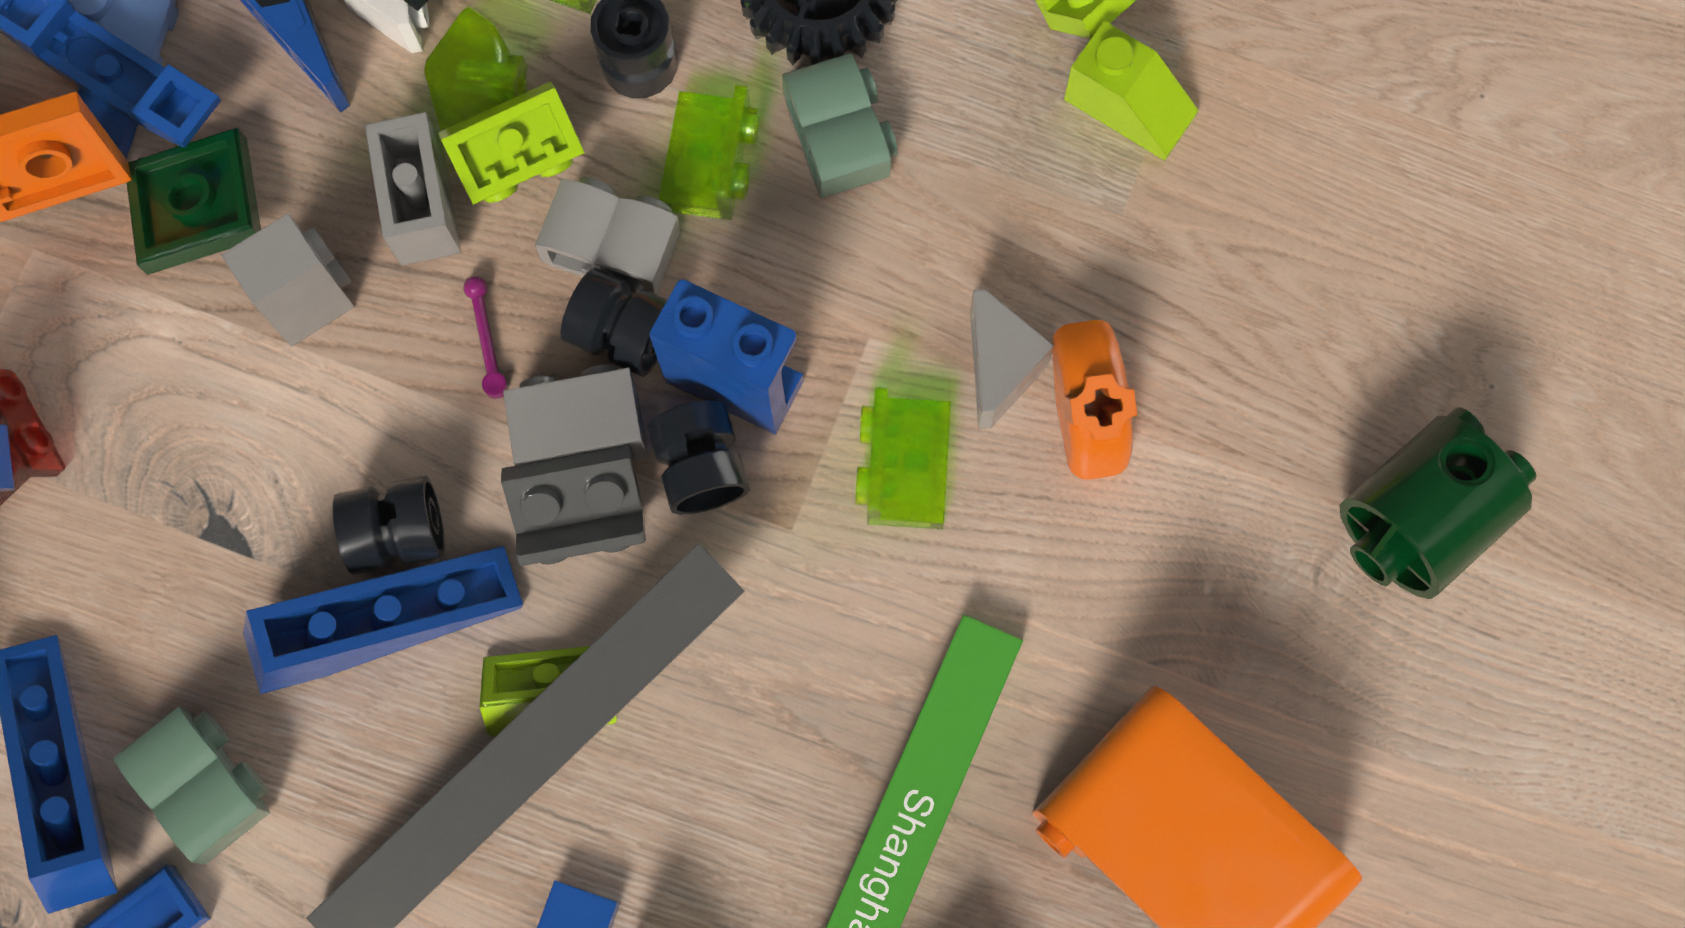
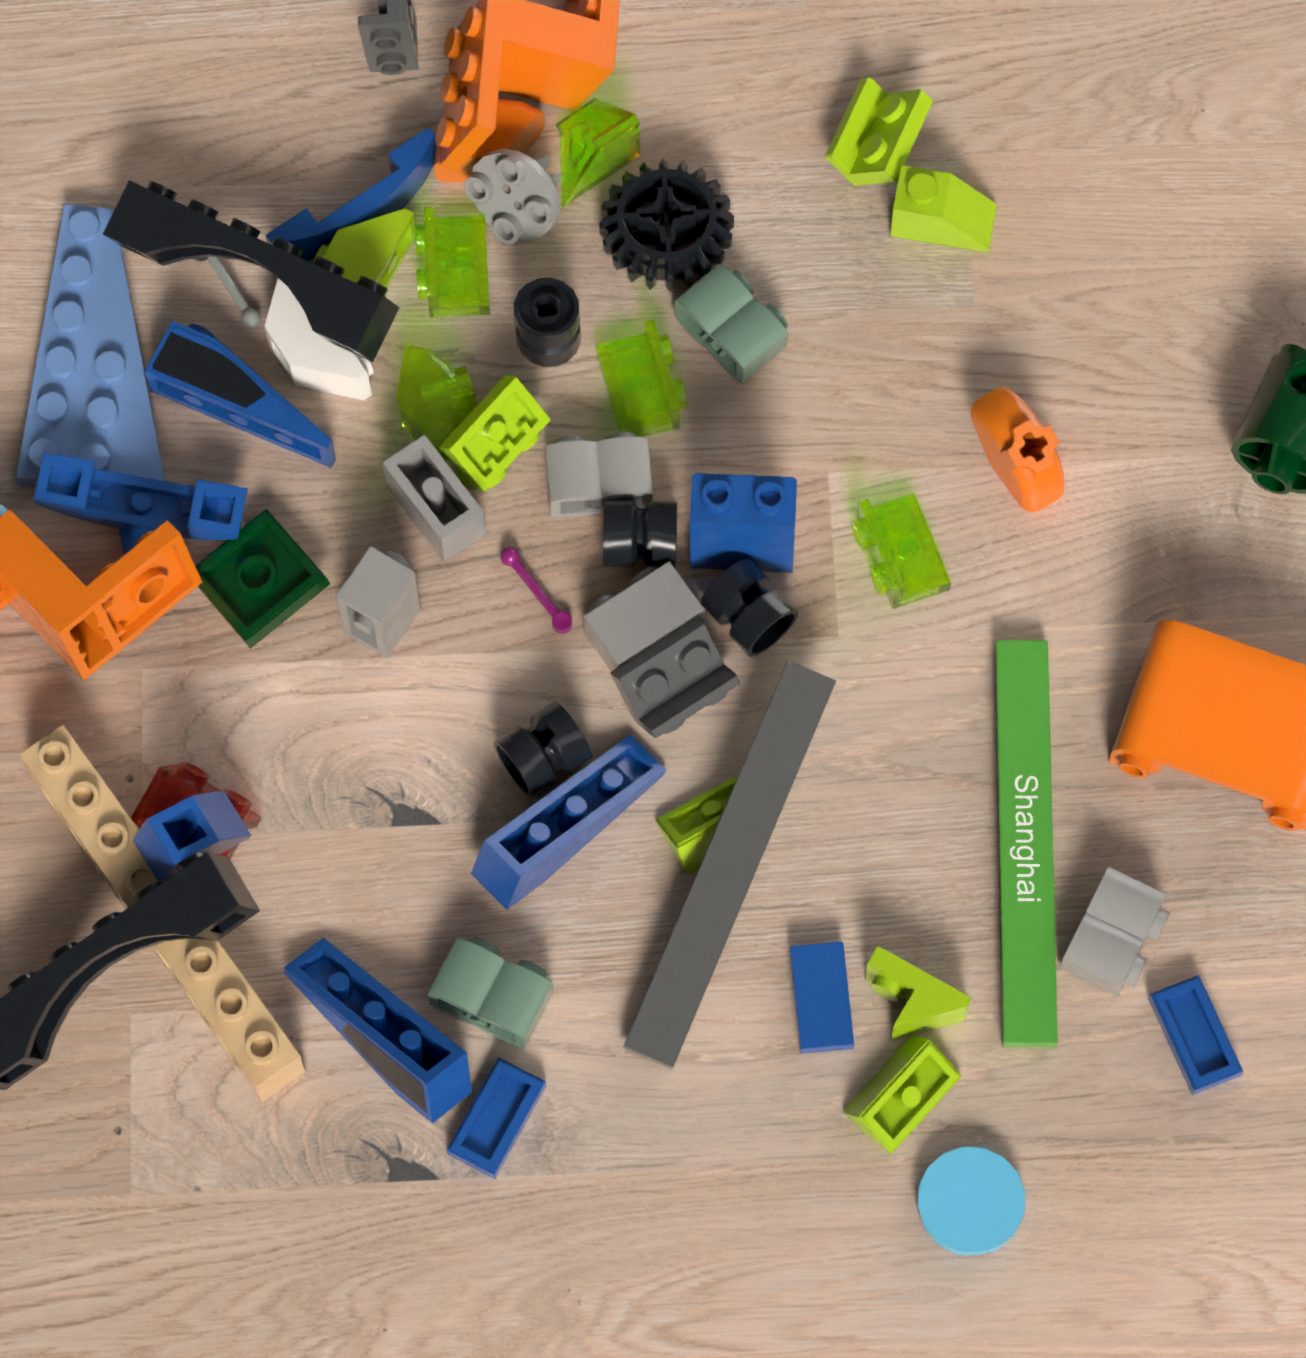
camera: 25 degrees left, 5 degrees down
(1005, 356) = (937, 442): light grey slope -> none

